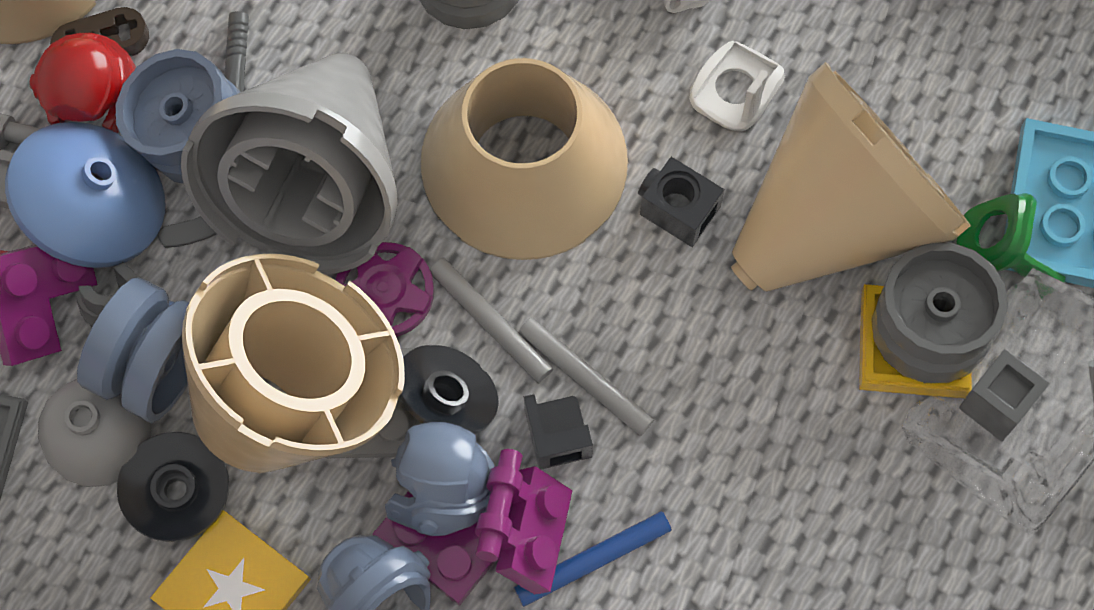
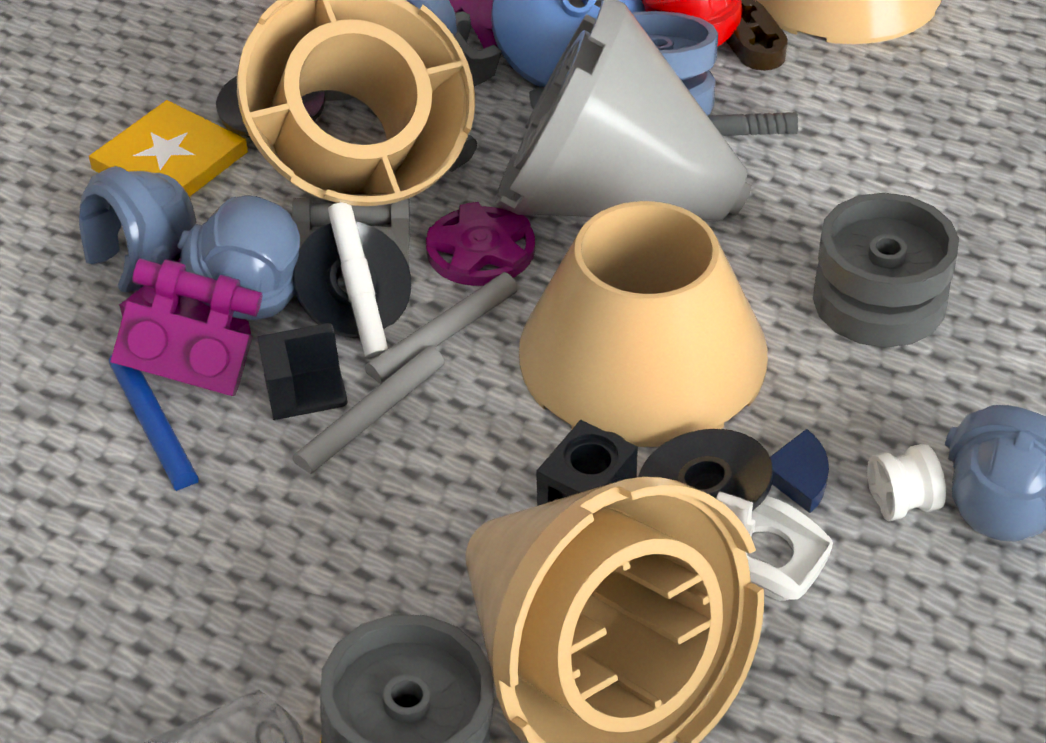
camera: 90 degrees right, 25 degrees down
(463, 380) = (357, 279): none -> white piece
(660, 54) = (801, 470): none -> dark blue tile
(683, 92) = (714, 463): none -> black dish

